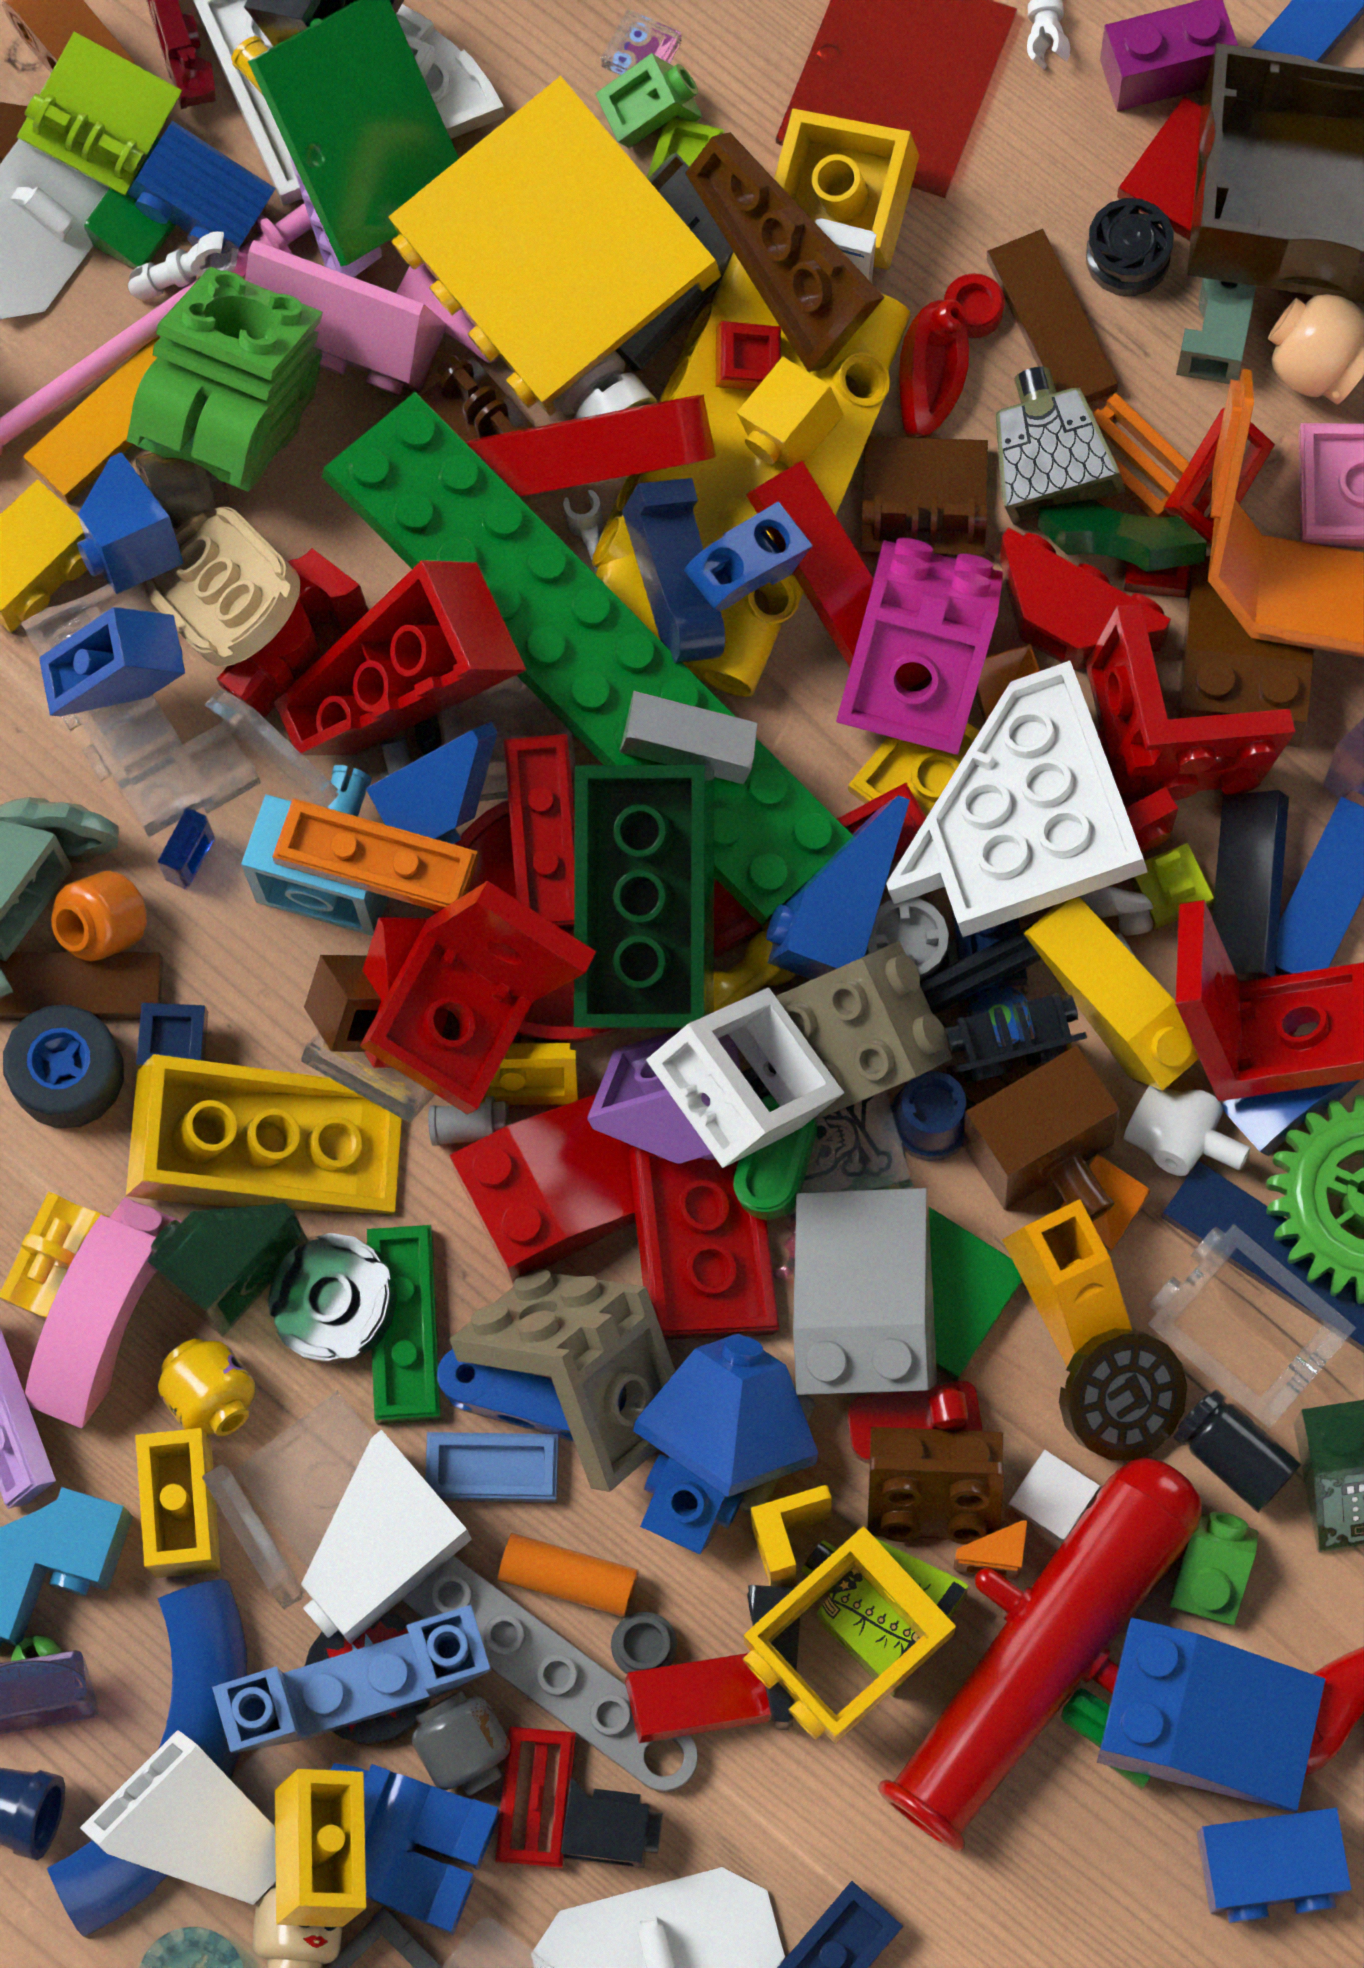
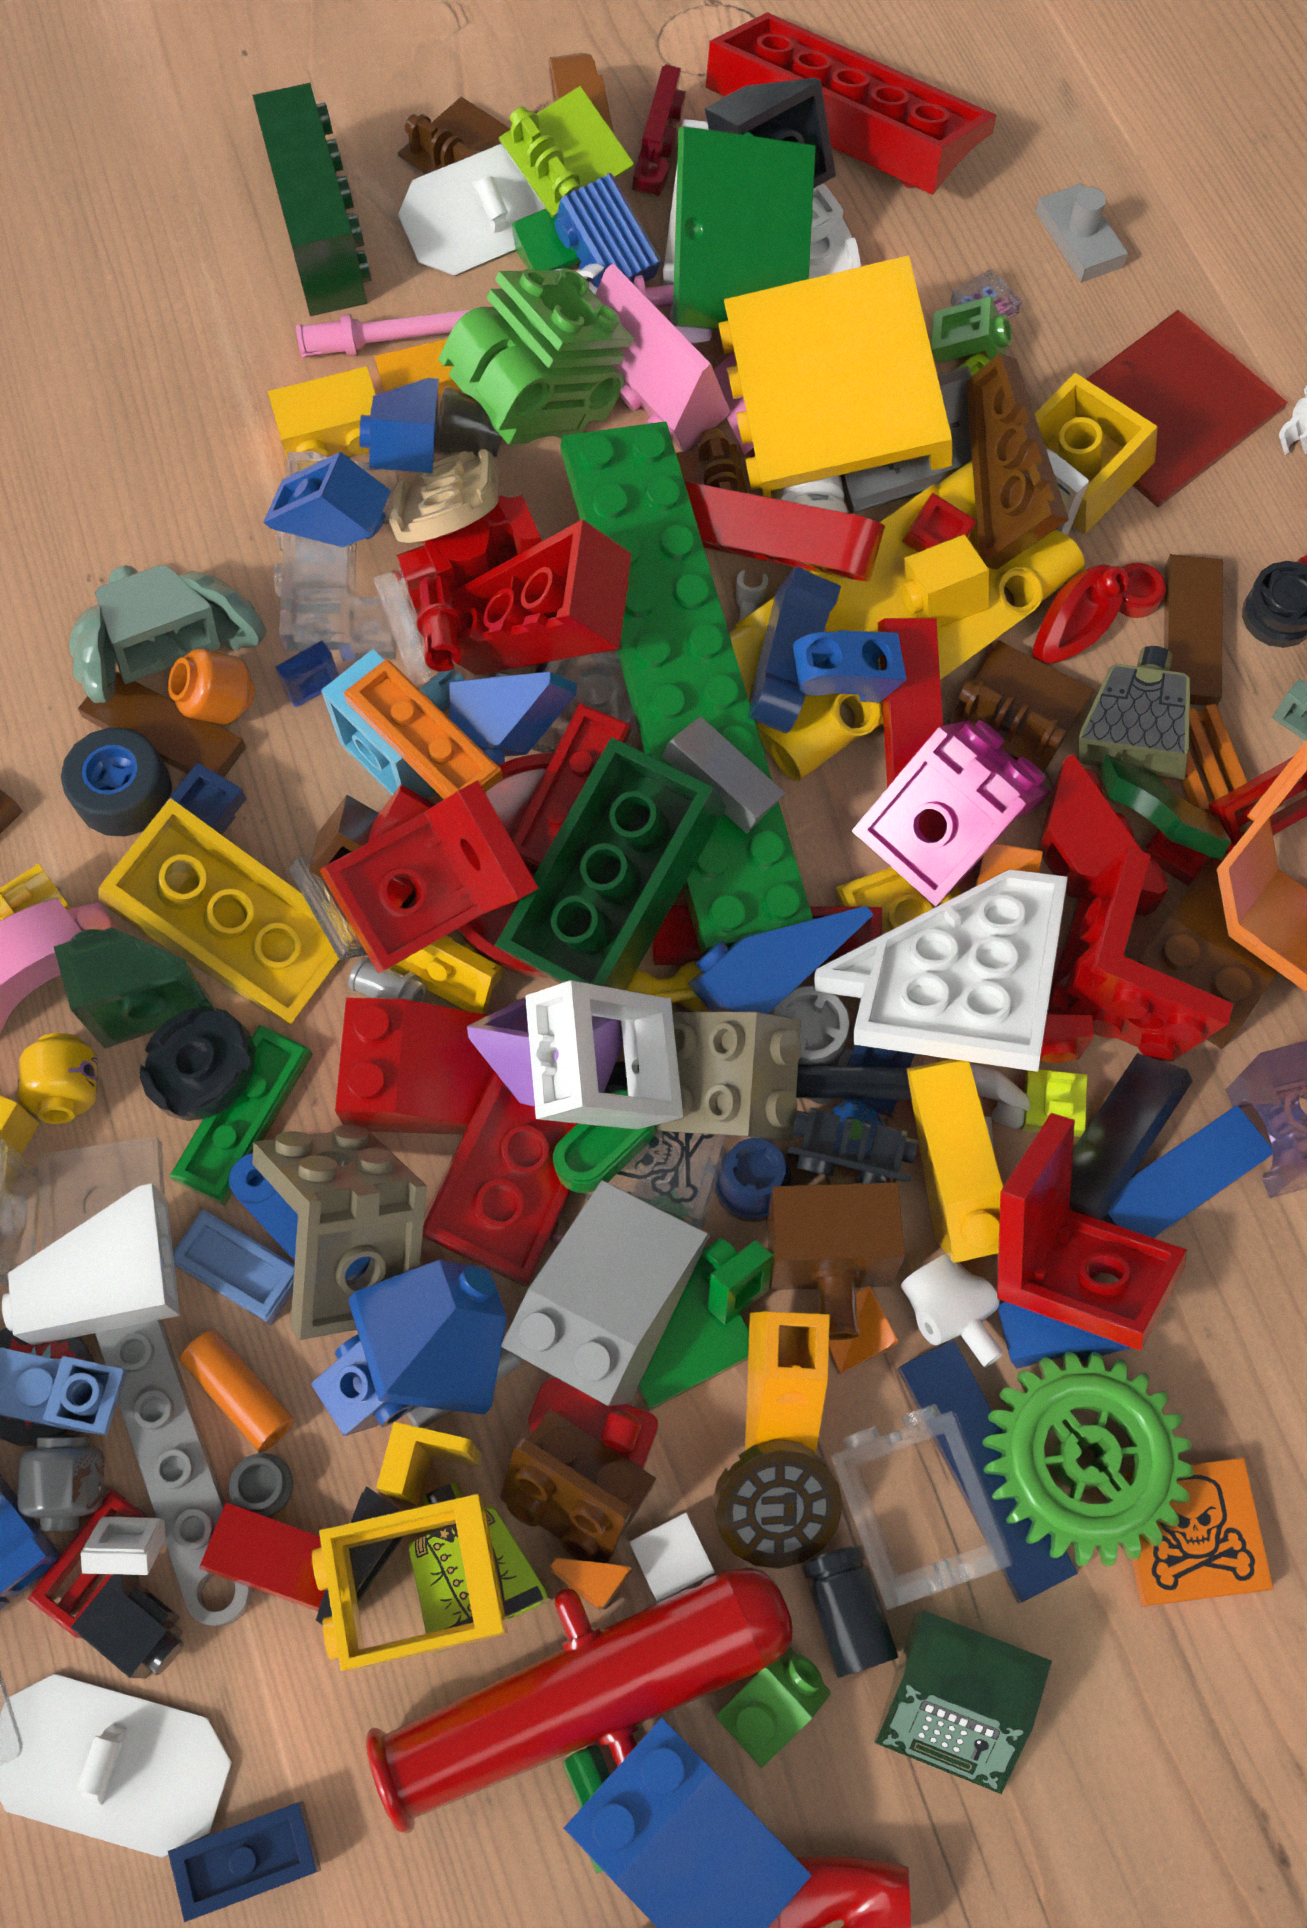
camera: 25 degrees right, 5 degrees down
(311, 730) = (438, 625): none -> red axle
(561, 1759) = (123, 1546): none -> white tile
(970, 1214) = (735, 1277): none -> green tile

